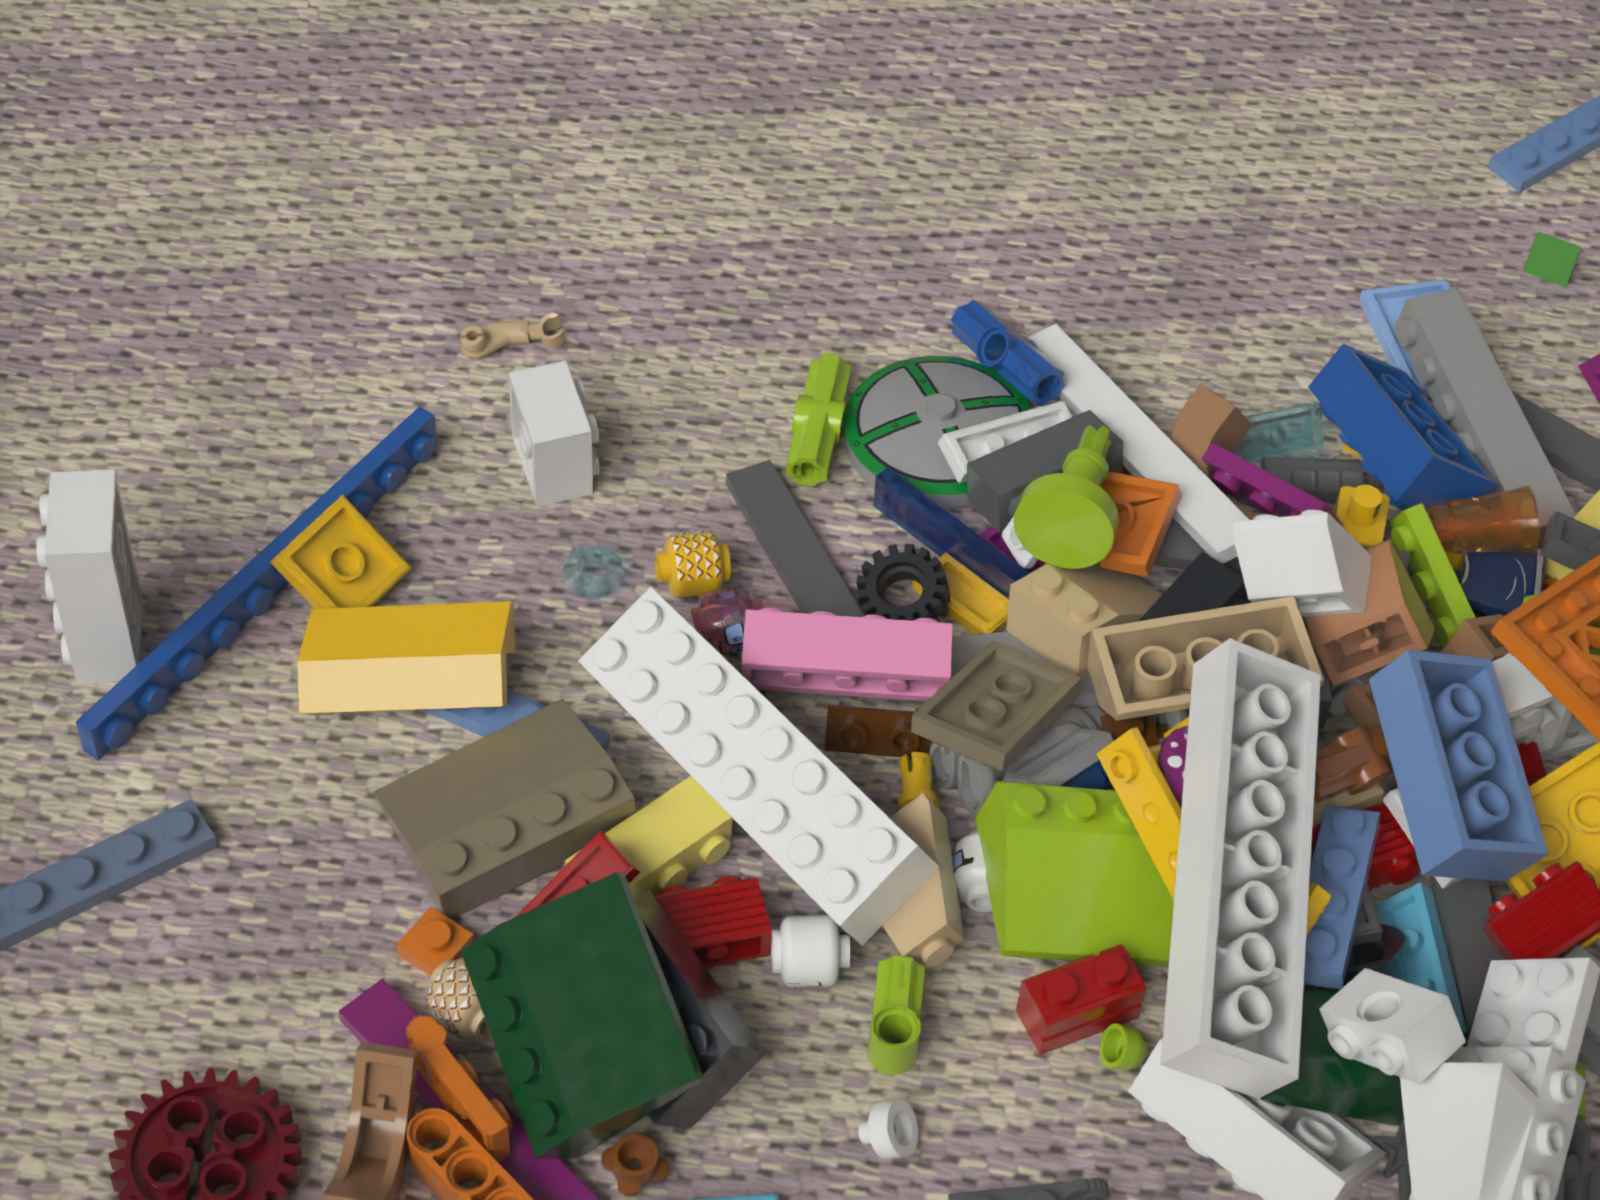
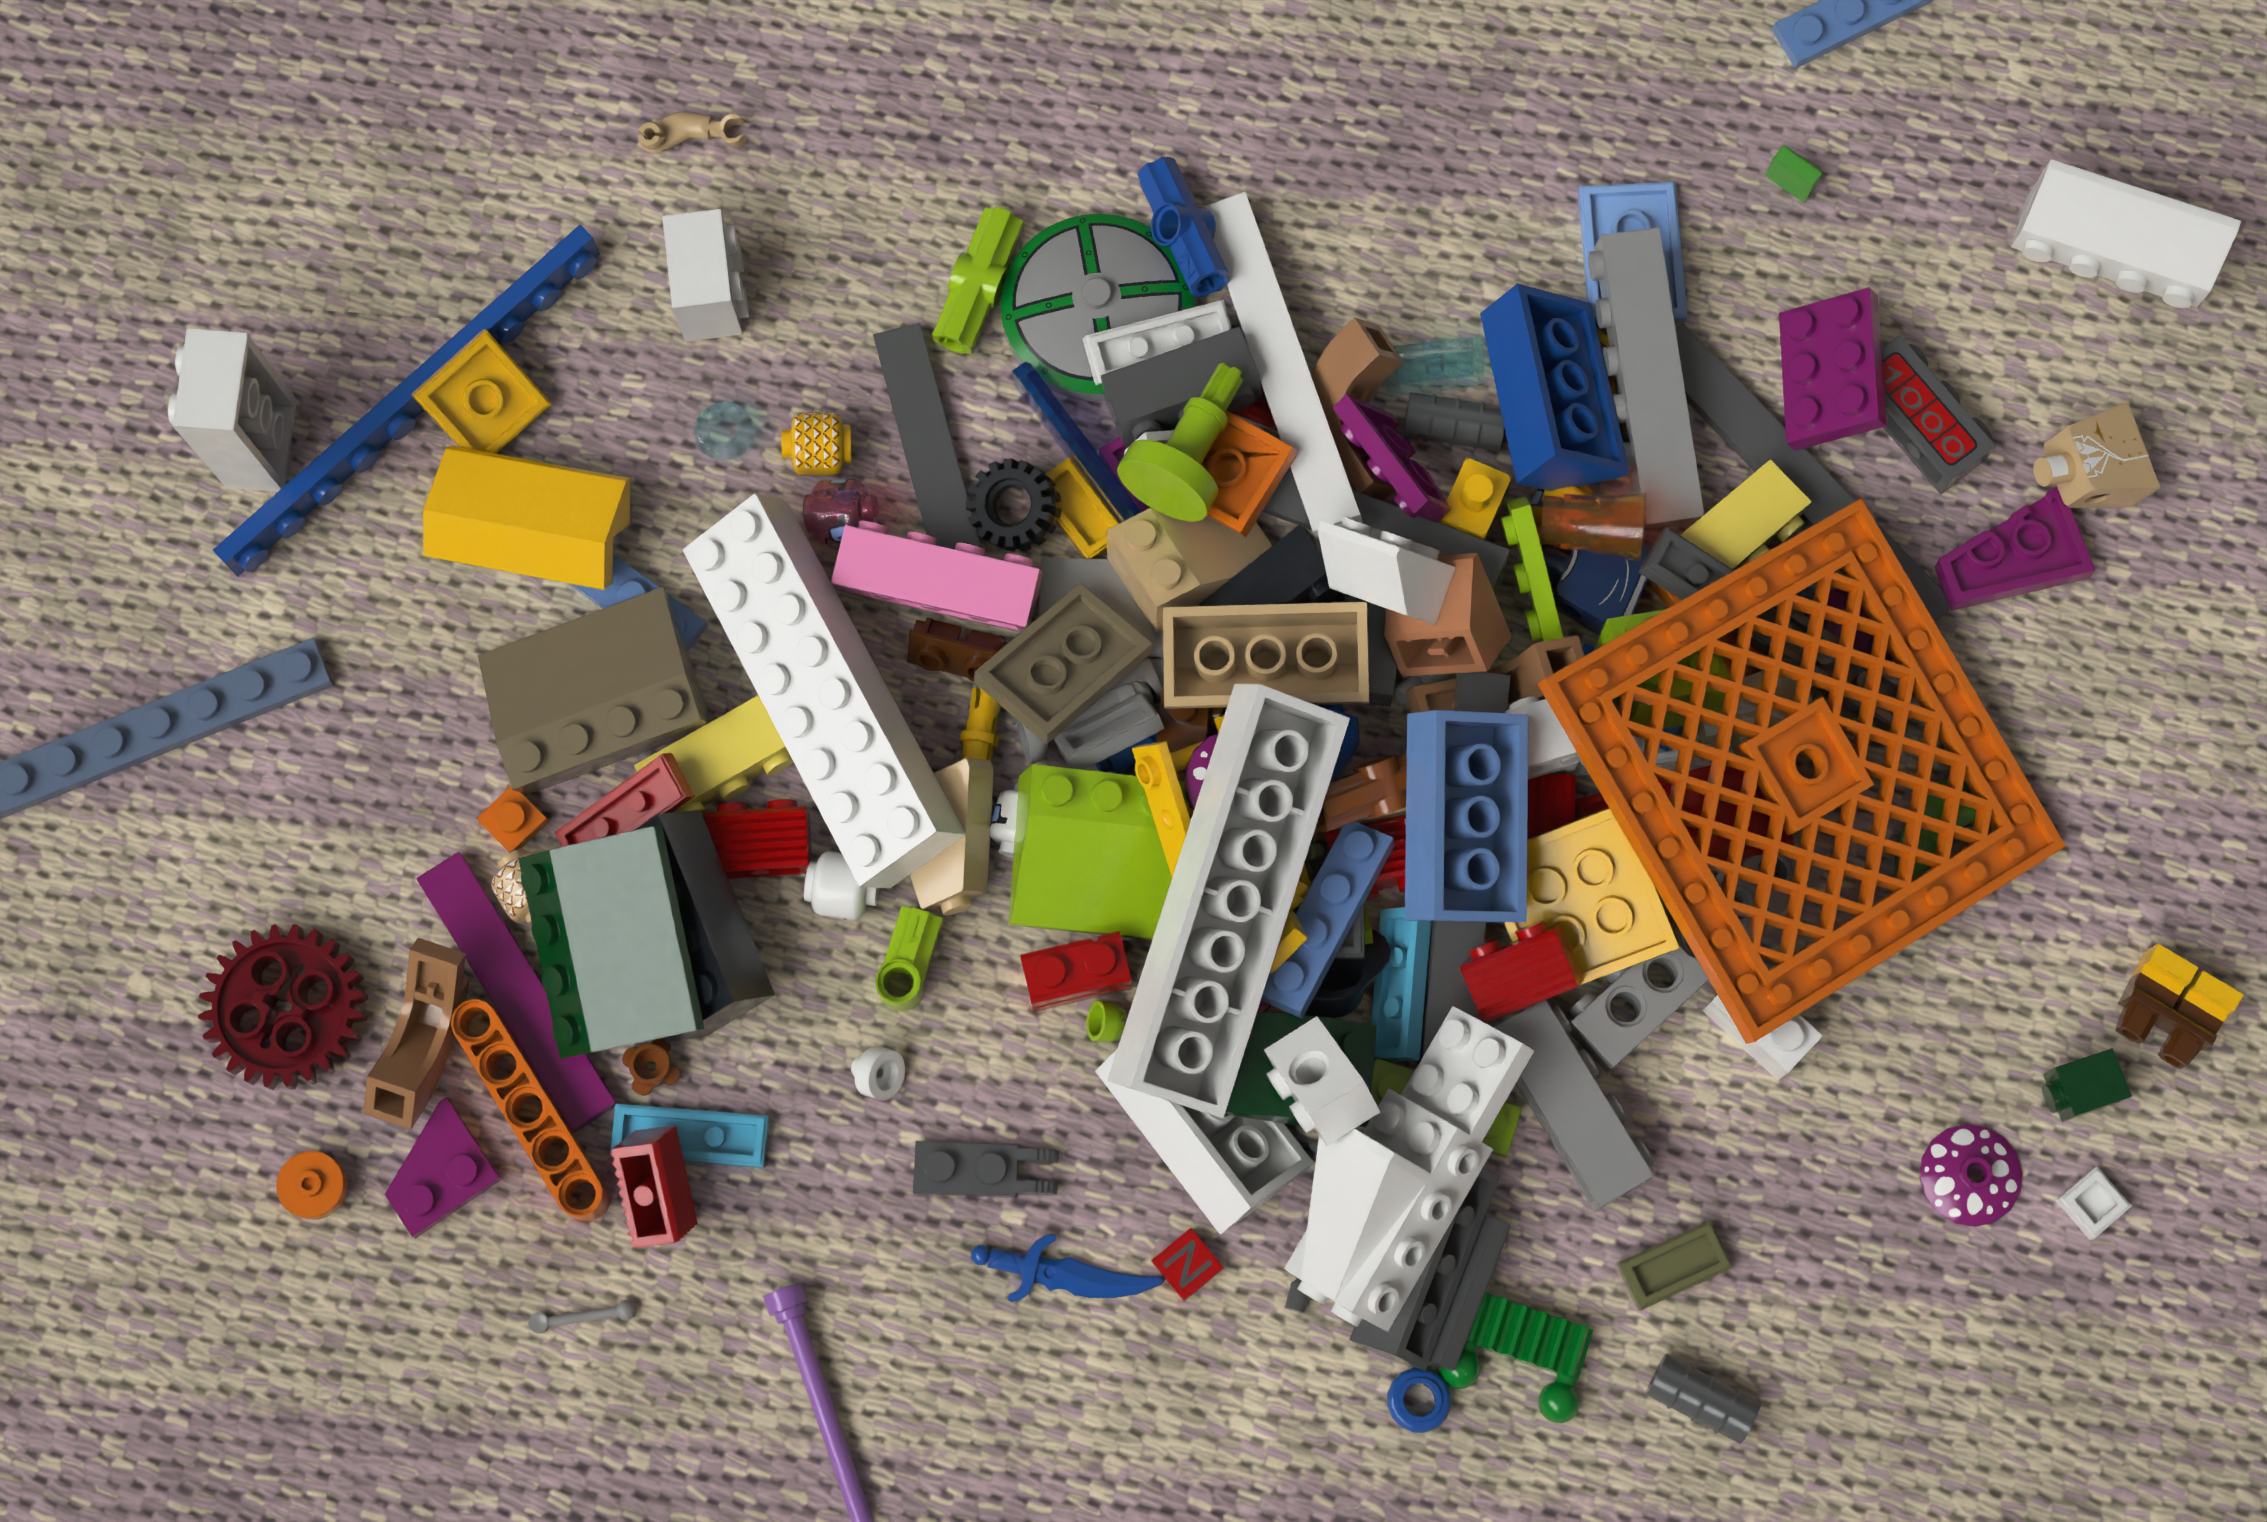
camera: 15 degrees right, 25 degrees up
(458, 1087) = (502, 976): orange hinge -> none

